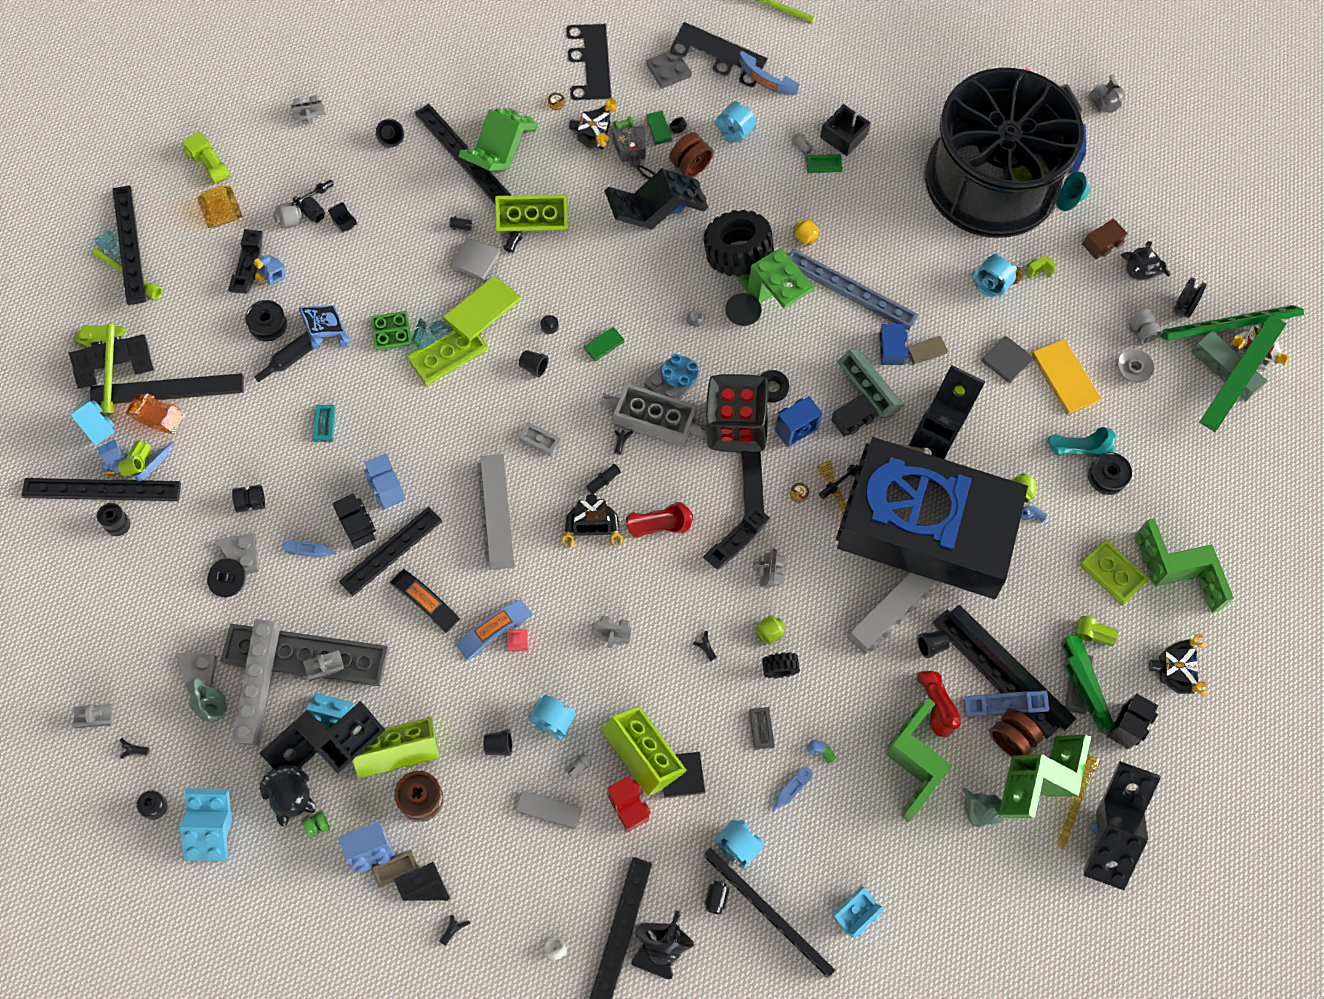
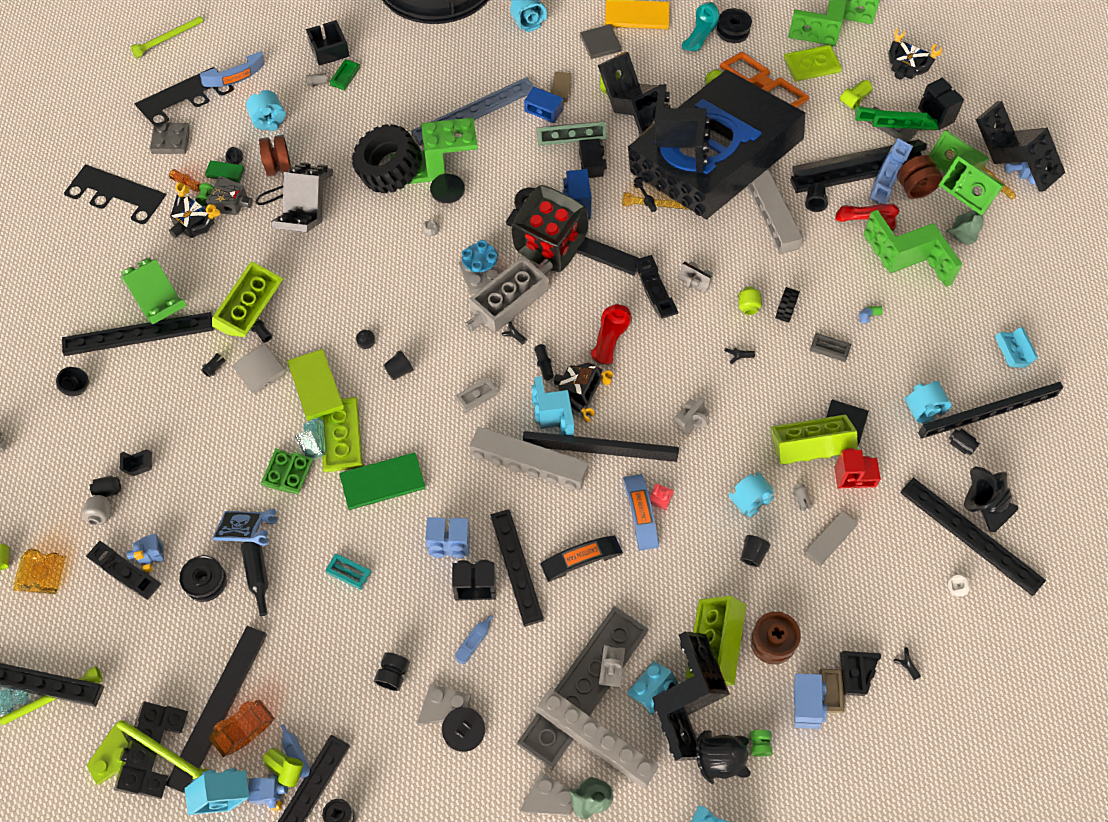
camera: 60 degrees left, 5 degrees down
(320, 188) = (88, 469): black piece -> none
(419, 407) = (382, 481): none -> green tile
(540, 567) = (602, 446): none -> black tile
(551, 506) = (552, 408): none -> medium azure bracket
(556, 101) = (138, 235): tile -> none
(604, 344) = (412, 305): green tile -> none
(630, 103) = (185, 179): none -> clear orange axle
(793, 787) = (891, 347): medium blue piece -> none
(799, 492) = (637, 227): tile -> none
(806, 232) = (403, 113): yellow head -> none
(906, 470) = (682, 128): none -> black bracket
(1052, 534) = (761, 79): none -> orange bar

